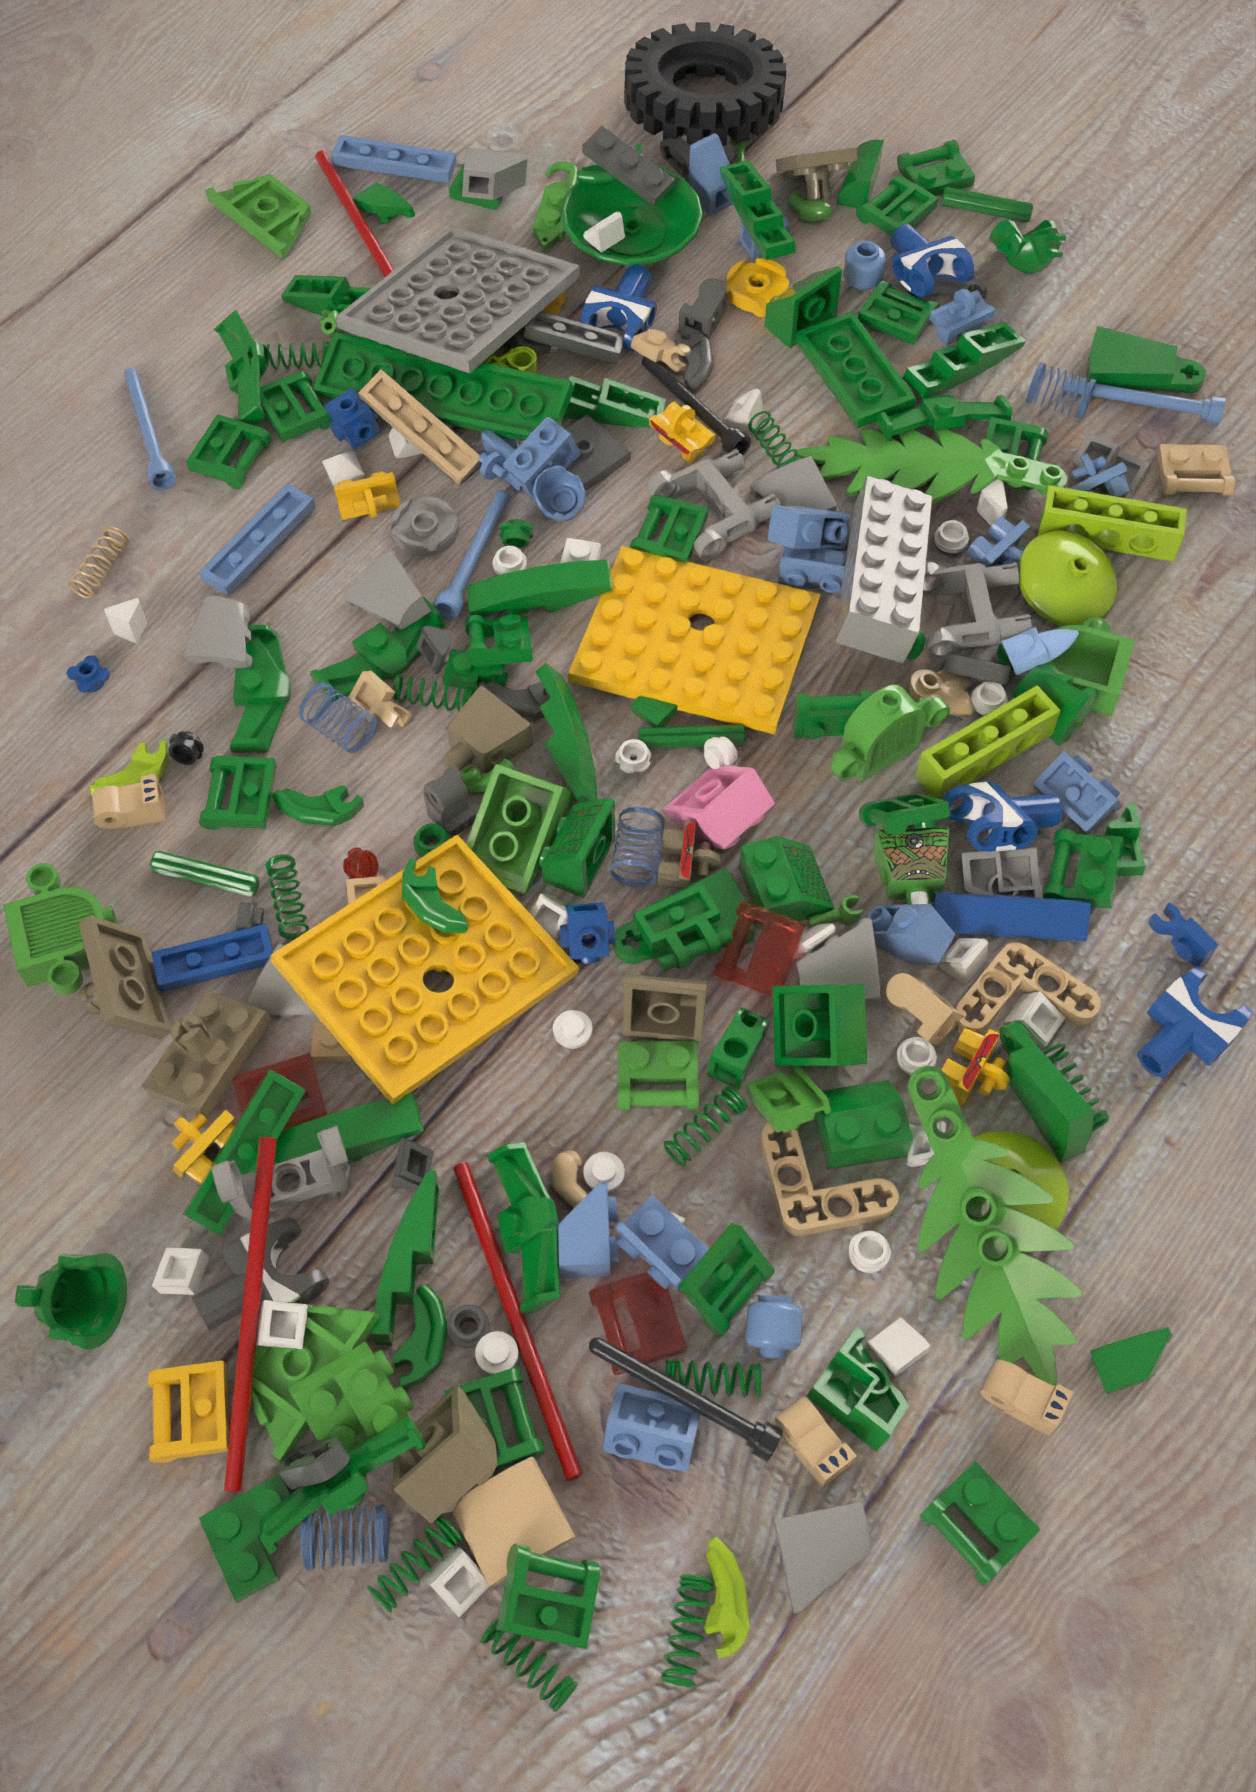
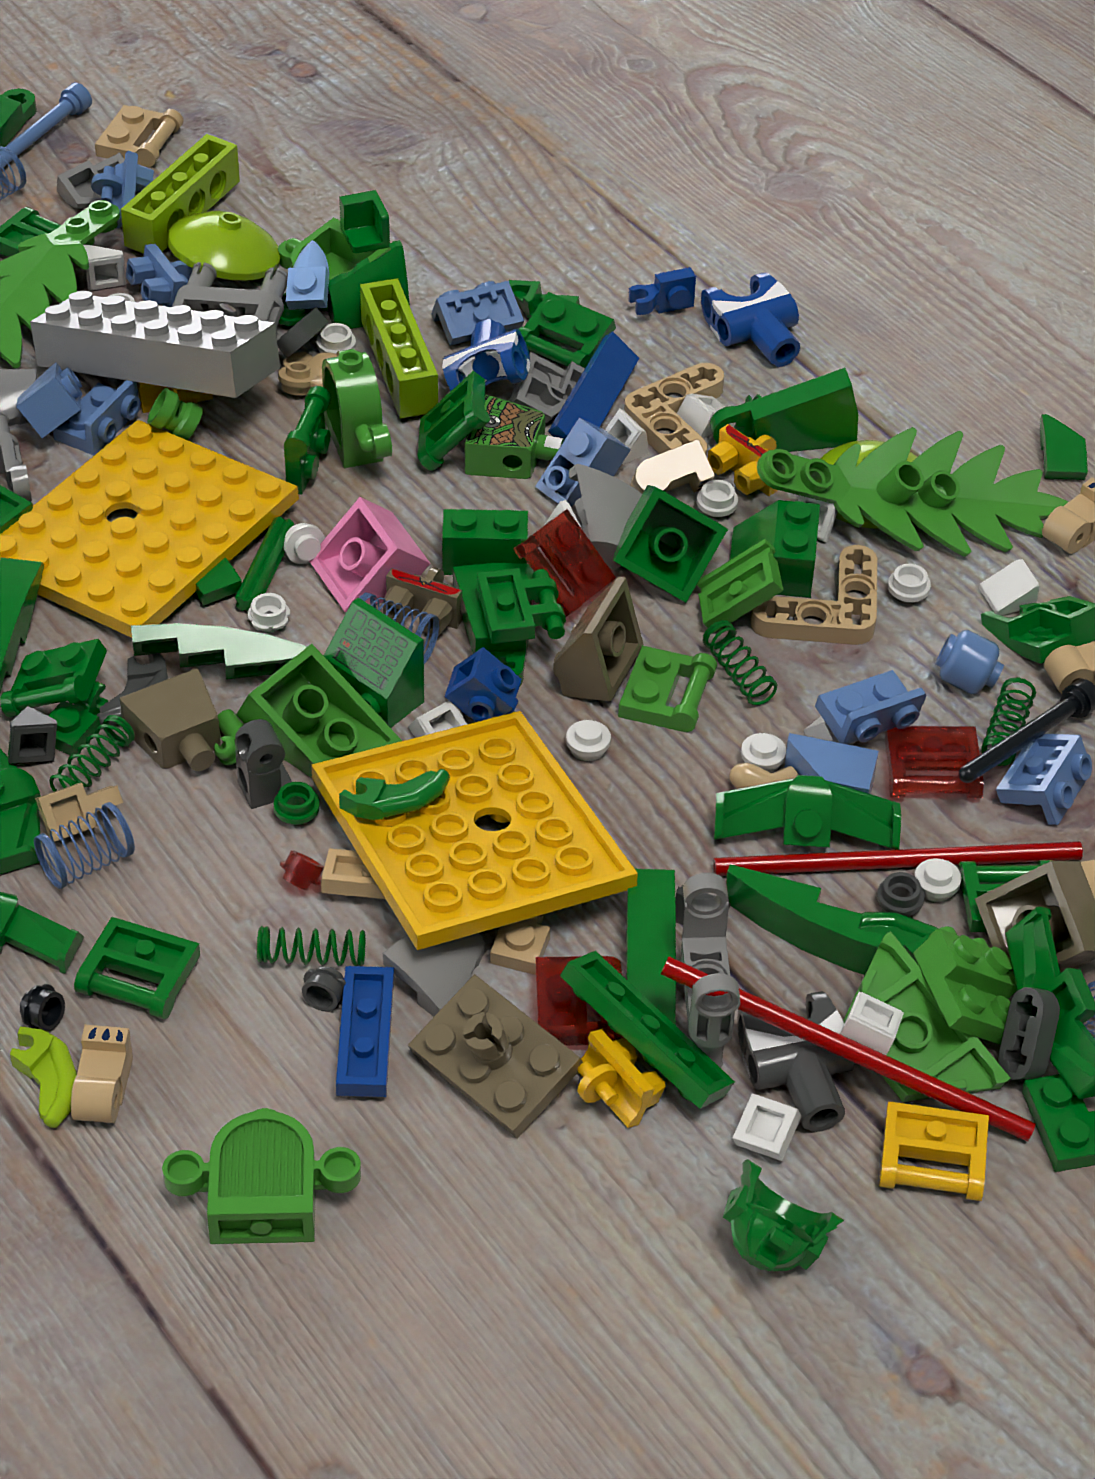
camera: 75 degrees left, 15 degrees down
(122, 978) = (370, 1113): dark tan plate -> none
(204, 873) = (237, 1024): green axle -> none
(321, 809) = (197, 899): green piece -> none
(726, 1278) = (907, 665): green plate -> none
(738, 1048) = (667, 614): green leg -> none
(826, 623) = (174, 414): none -> bright green wheel
(842, 913) = (536, 508): bright green hand -> none
(1127, 663) = (364, 221): none -> green panel

